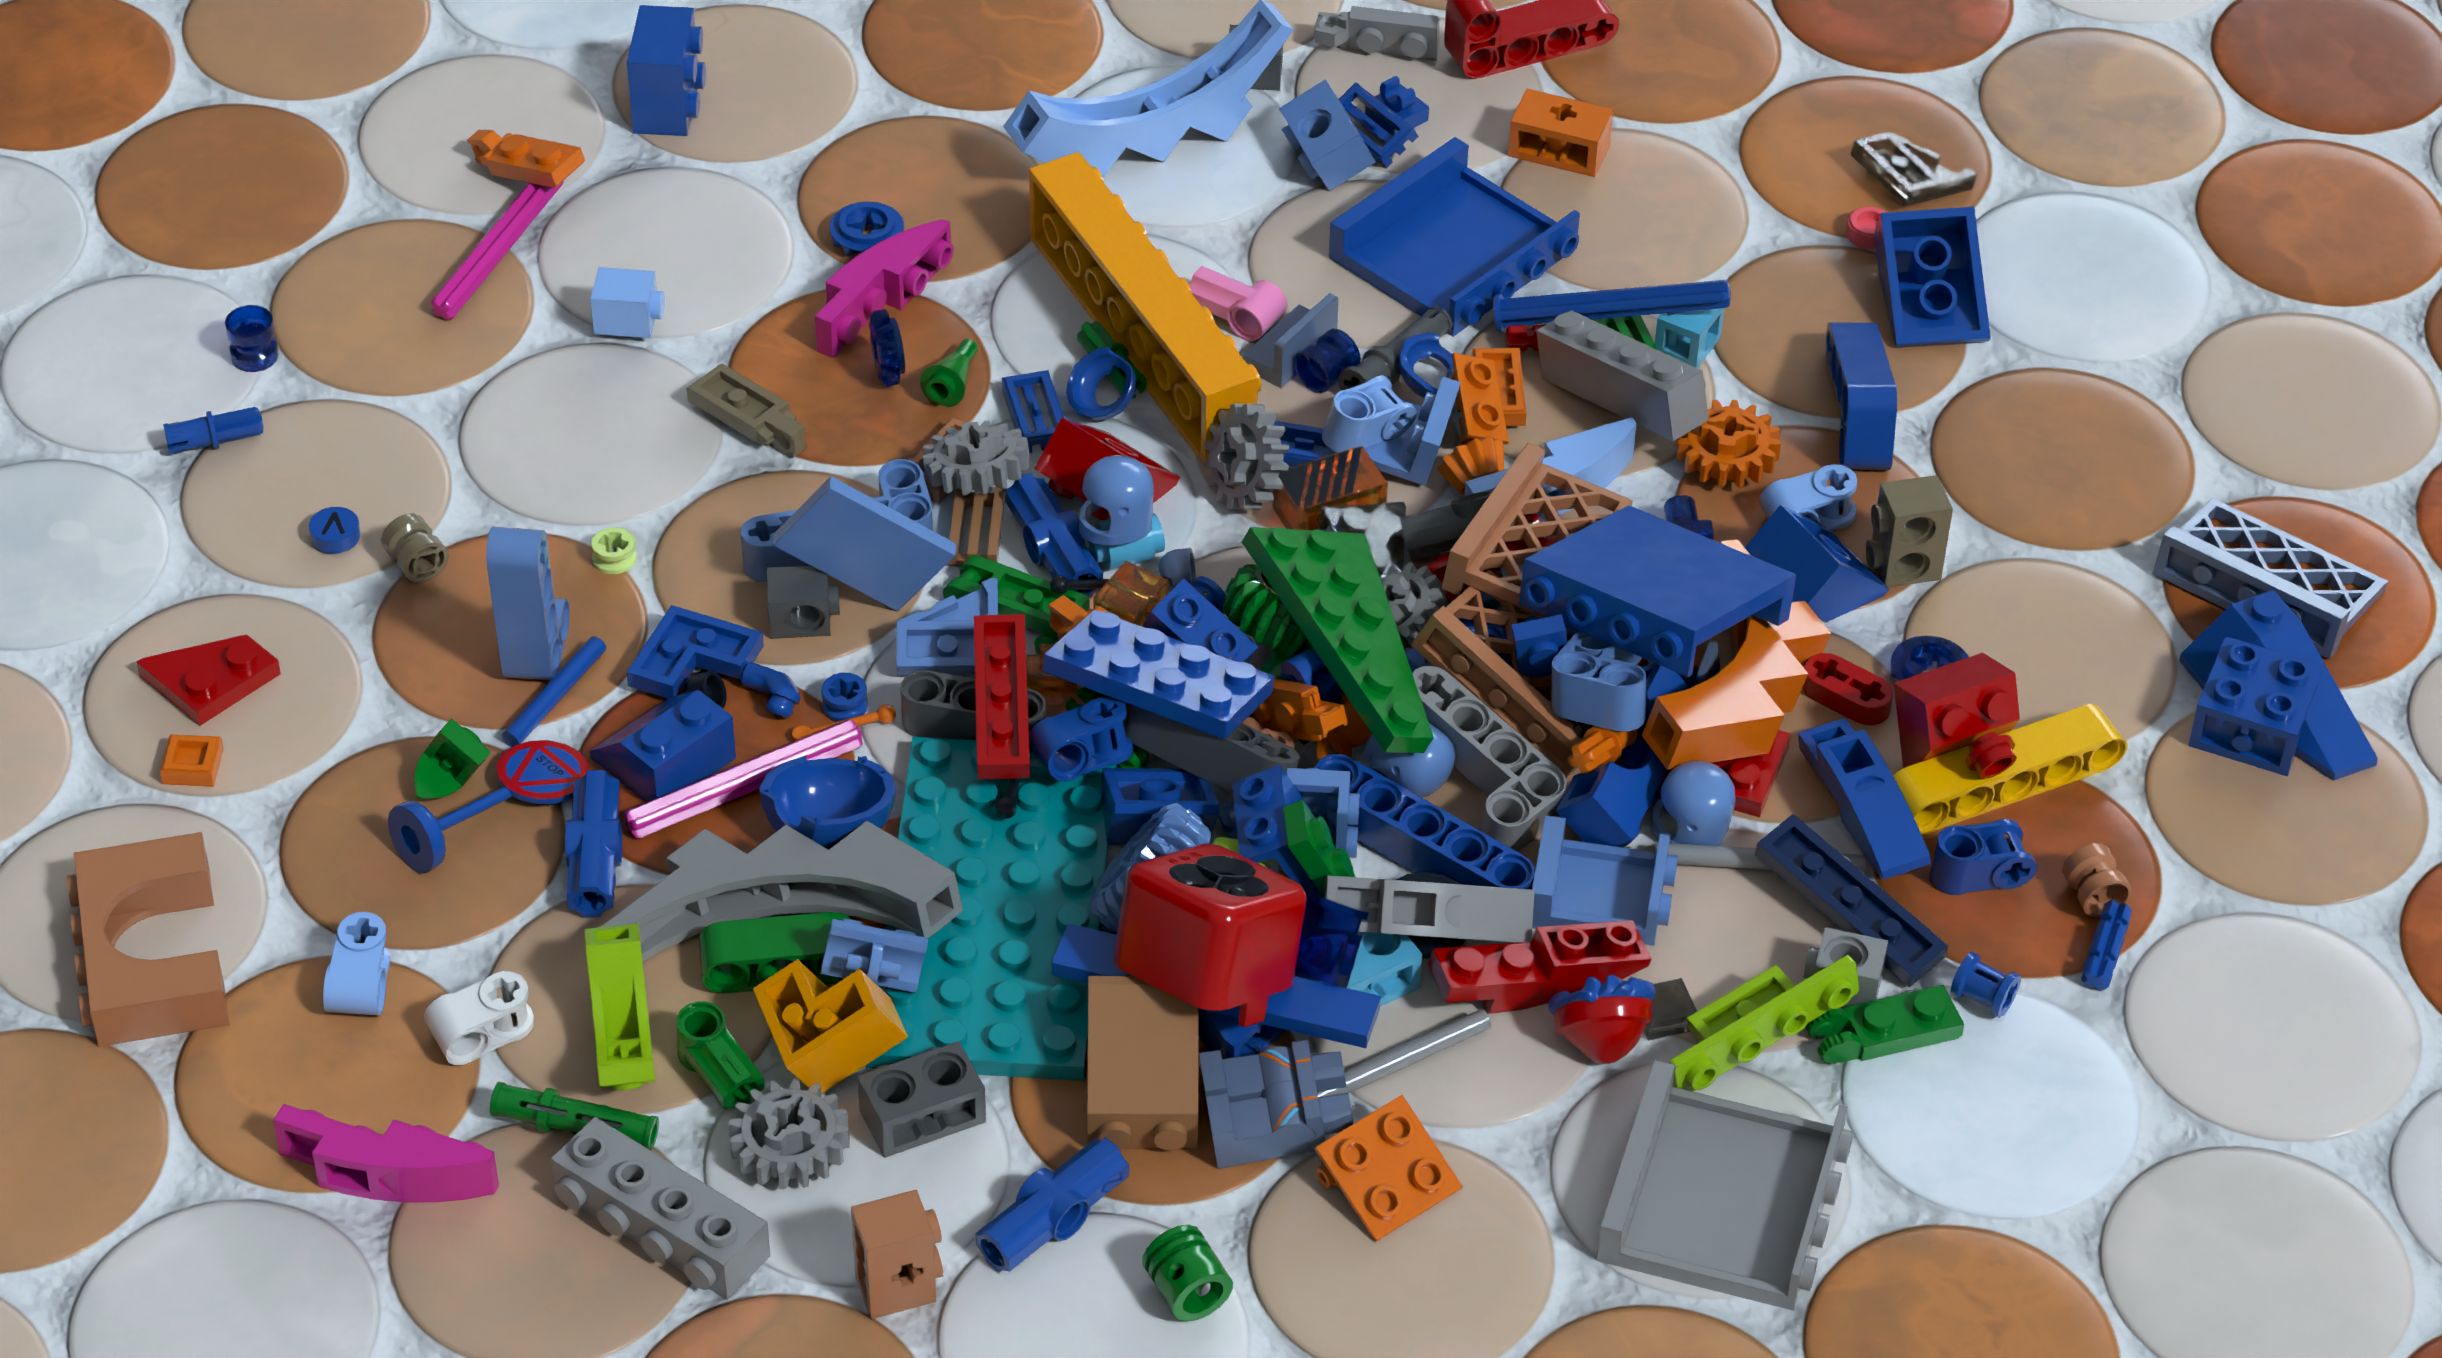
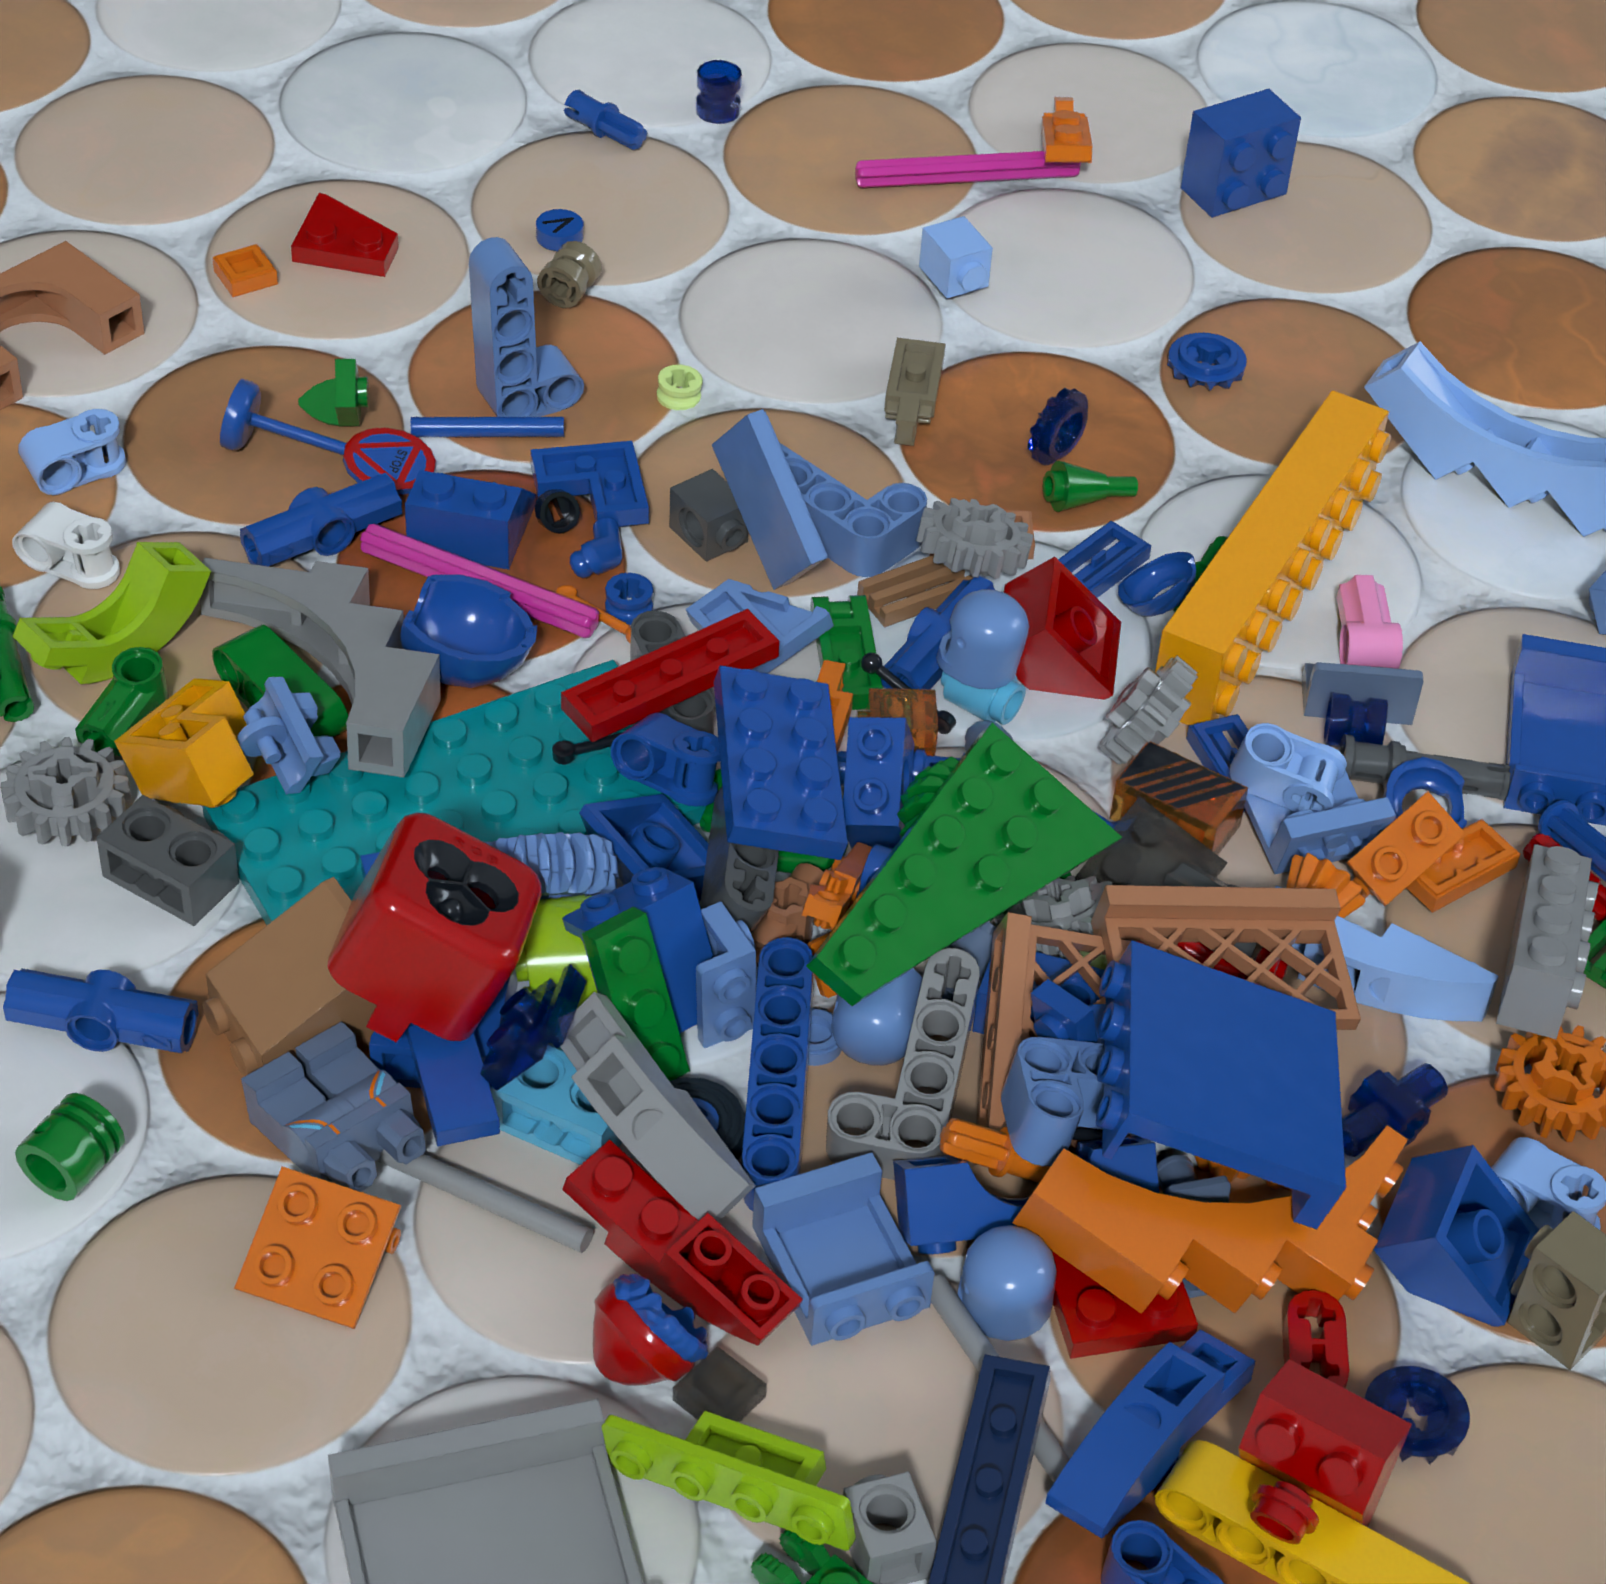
camera: 55 degrees right, 0 degrees up
(879, 276) = (1155, 389): dark pink slope -> none

